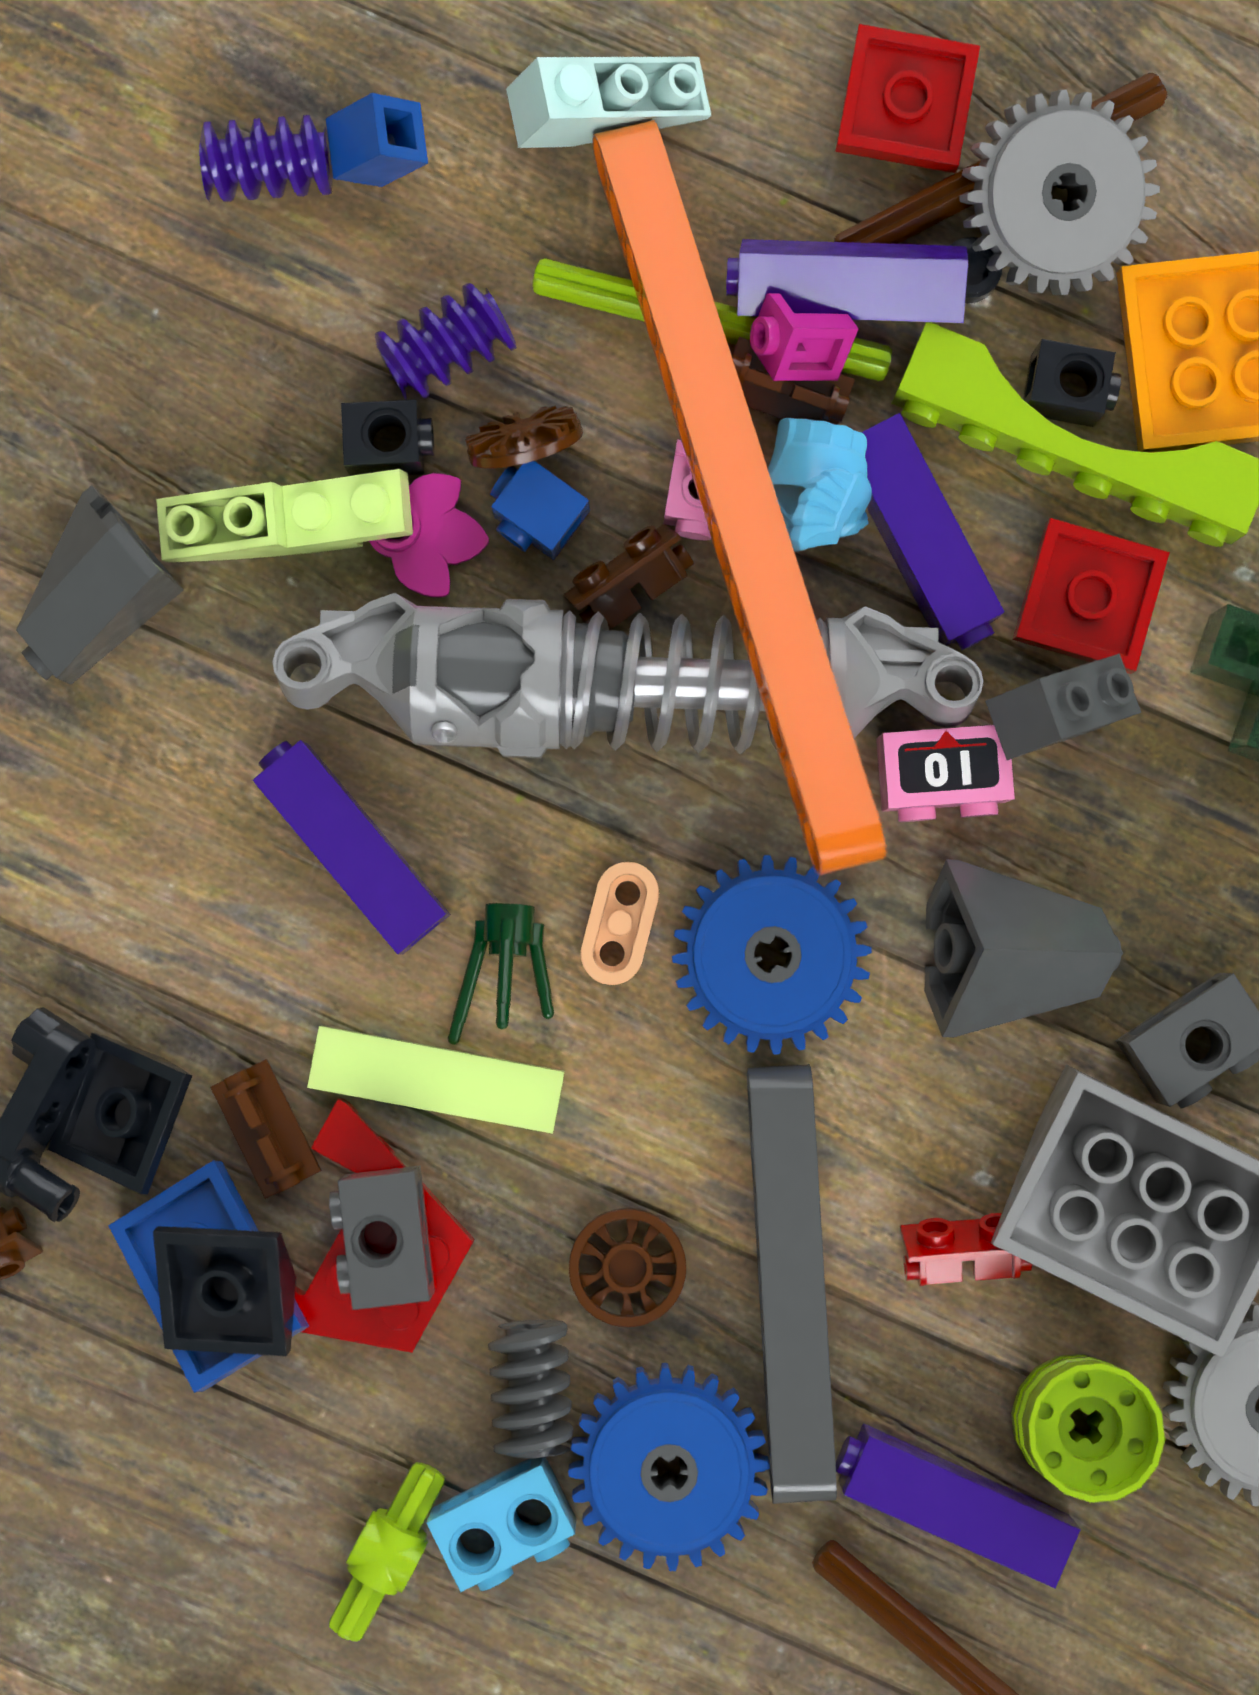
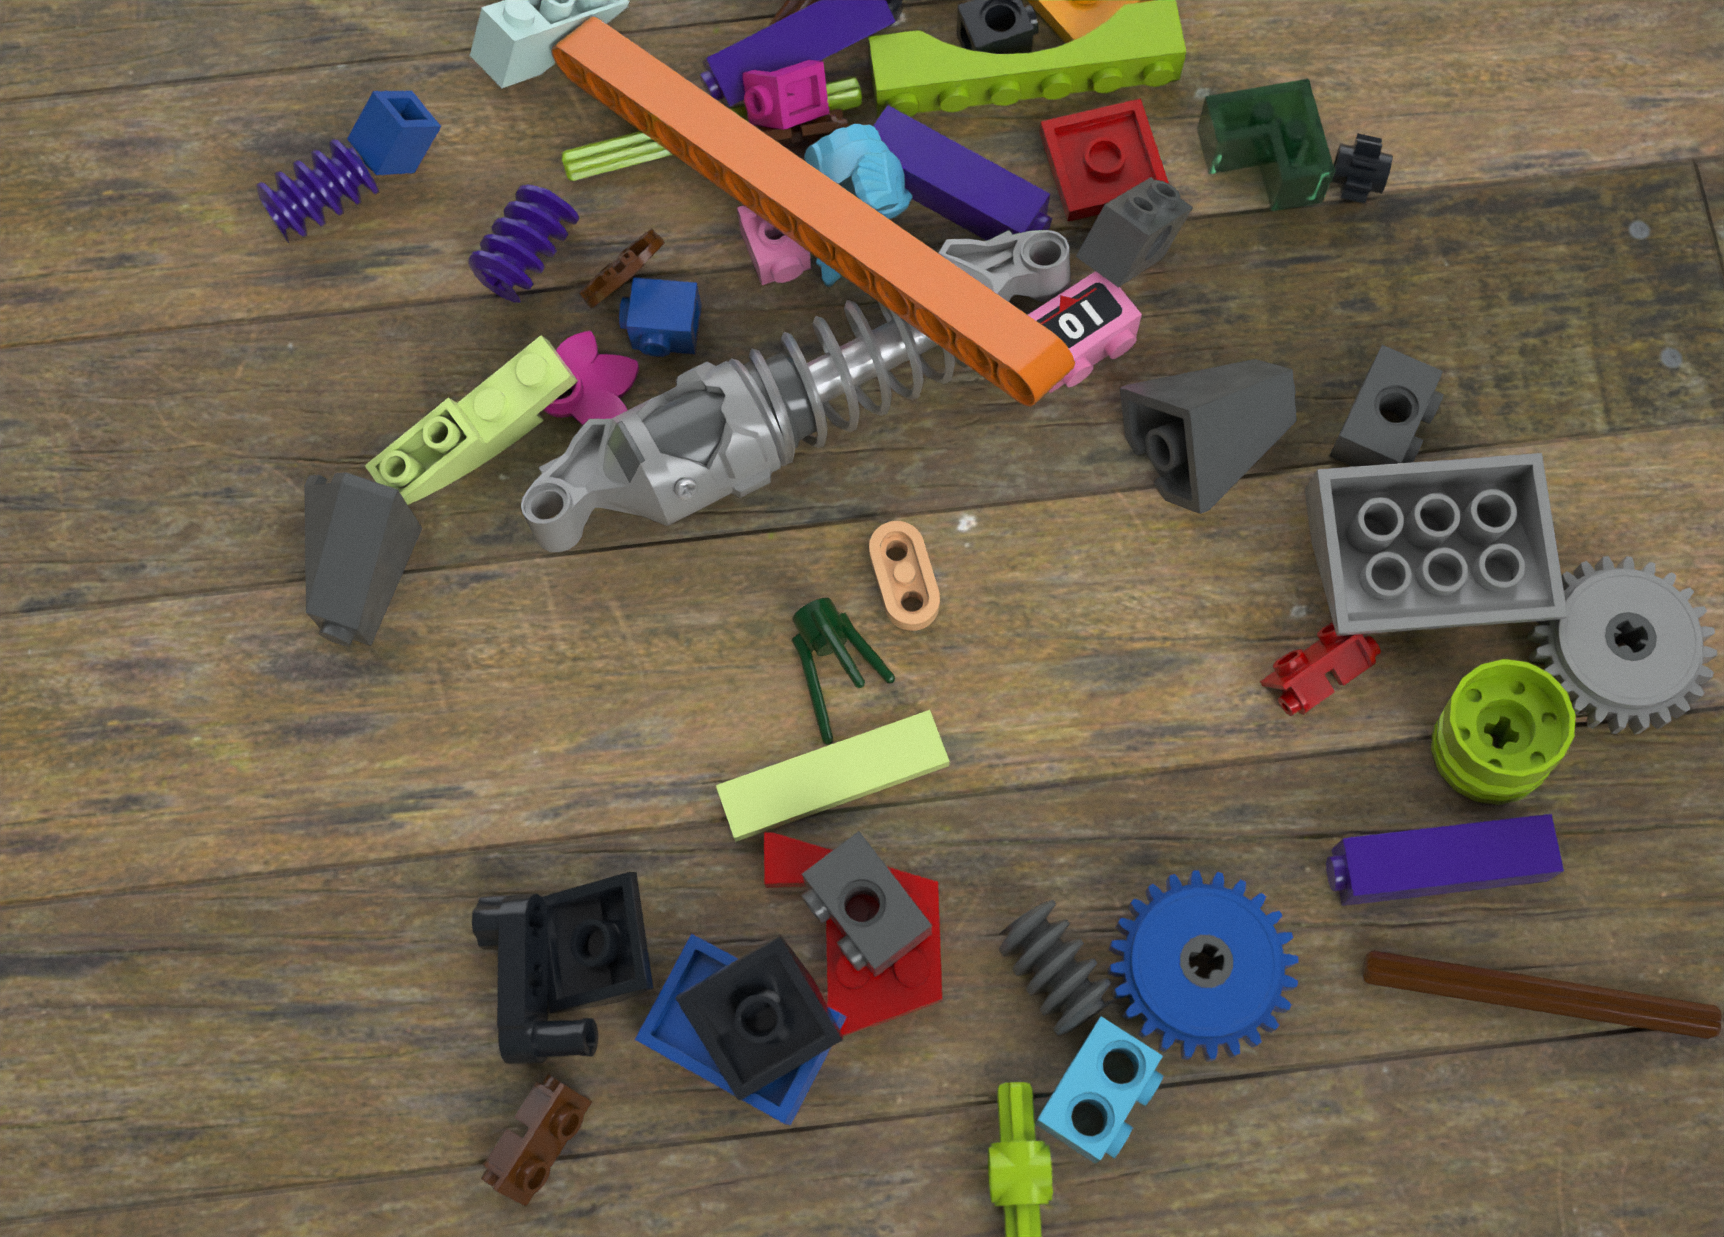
camera: 25 degrees left, 15 degrees down
(266, 1128) = (718, 891): reddish brown hinge -> none
(349, 845) = (661, 633): dark purple brick -> none
(364, 420) = (501, 317): black brick -> none
(627, 1267) = (1071, 832): reddish brown wheel -> none
(645, 561) = (767, 310): reddish brown hinge -> none
(785, 998) = (1027, 569): blue gear -> none
(791, 1284) = (1209, 770): dark grey beam -> none

